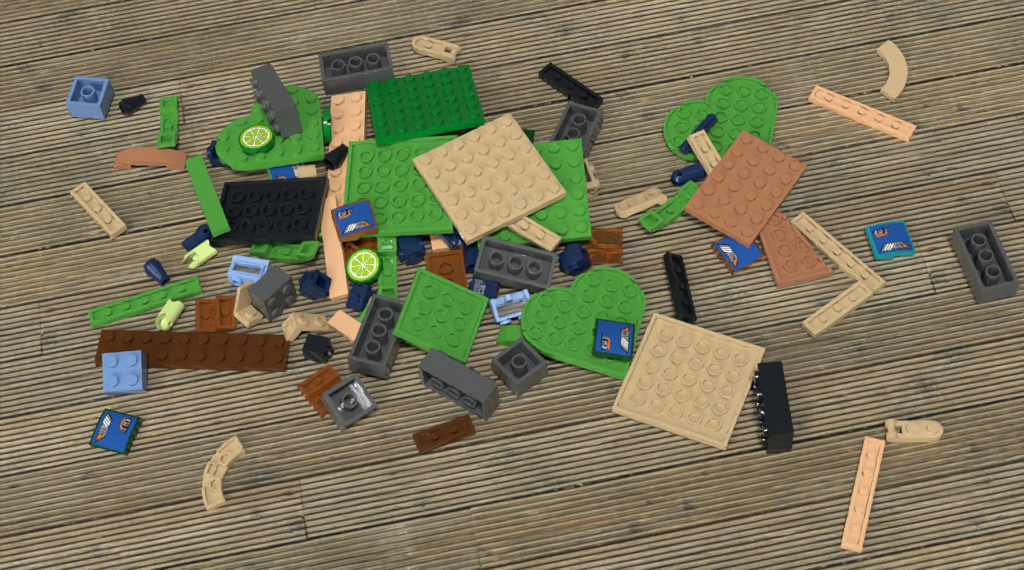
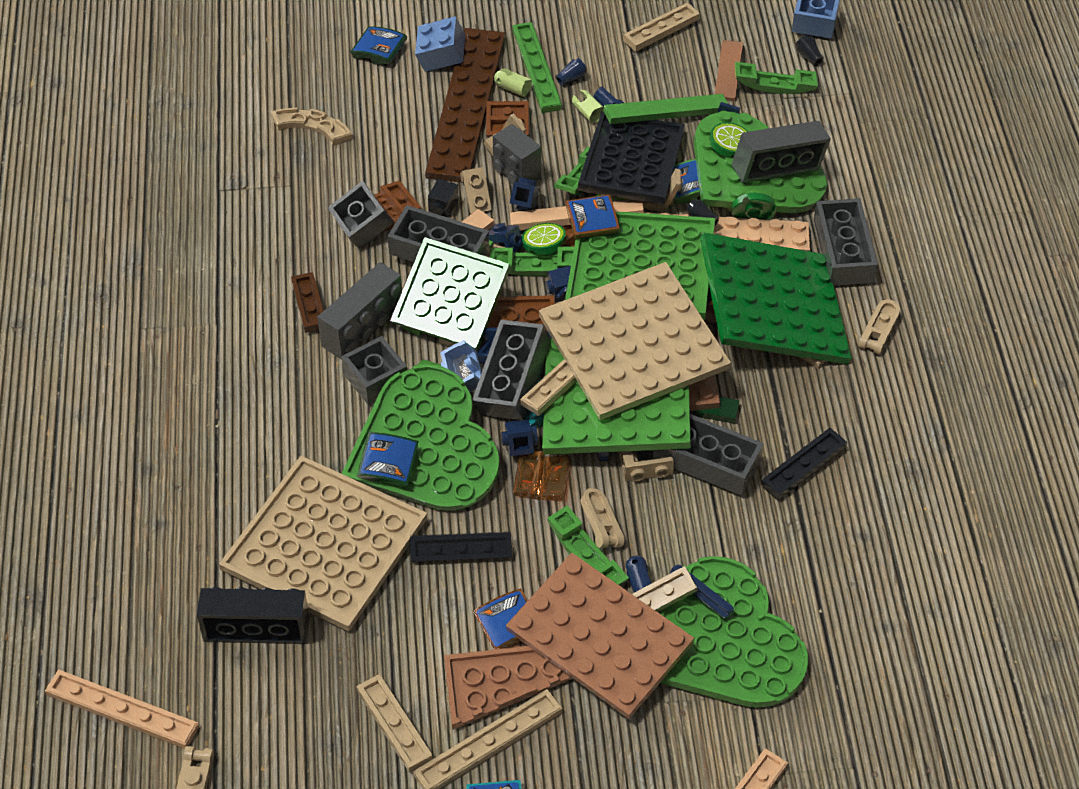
camera: 90 degrees right, 5 degrees down
(247, 269) = (556, 143): light blue window -> none

